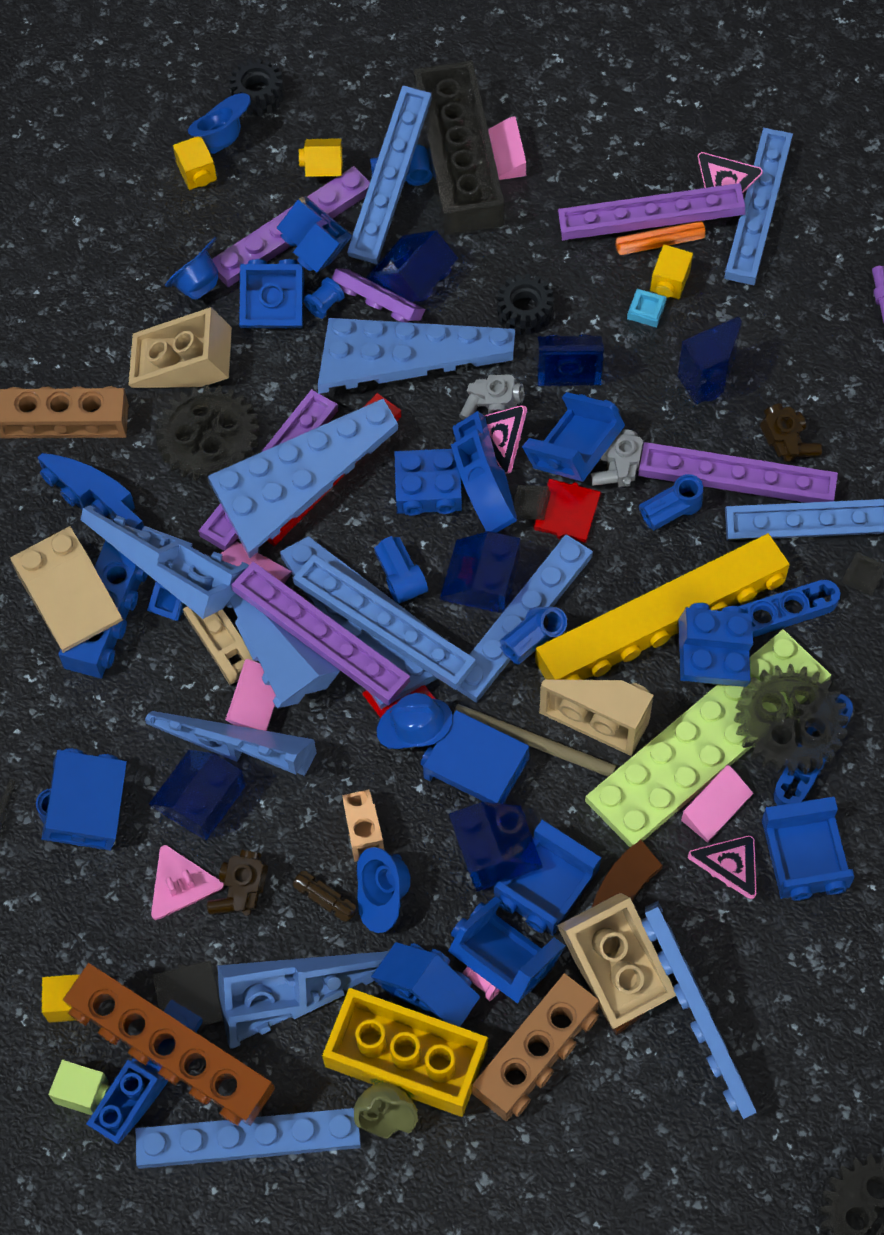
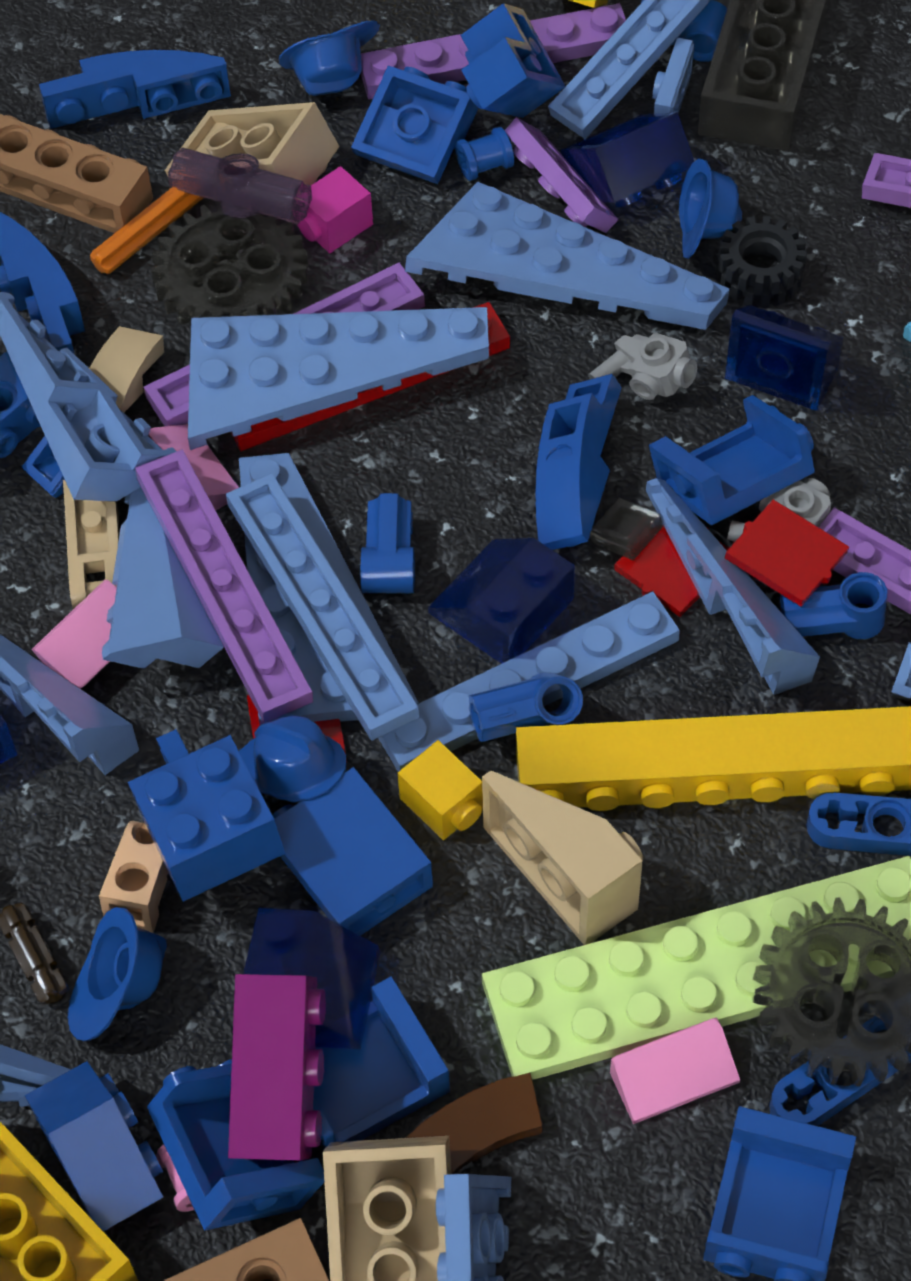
camera: 25 degrees right, 5 degrees down
(86, 328) = (144, 78): none -> blue slope
(138, 424) = (142, 229): none -> orange axle
(177, 517) = (125, 360): none -> tan slope
(192, 379) = (240, 185): none -> clear purple piece
(252, 370) = (337, 210): none -> dark pink brick
(391, 773) = (205, 815): none -> blue hinge
(414, 208) = (672, 85): none -> medium blue plate
(427, 482) = (490, 446): blue plate -> none
(476, 283) = (706, 206): none -> blue piece
(505, 433) = (634, 422): piece -> none
(508, 149) = (844, 55): bright pink slope -> none
(509, 701) = (441, 790): none -> yellow brick
(513, 897) = (275, 1067): none -> magenta brick
(542, 743) = (456, 866): dark tan piece -> none
(603, 513) = (770, 638): none -> medium blue wedge
(634, 481) = (787, 552): none -> red piece
(715, 645) = (785, 832): blue plate -> none
(731, 863) = (645, 1168): black piece -> none

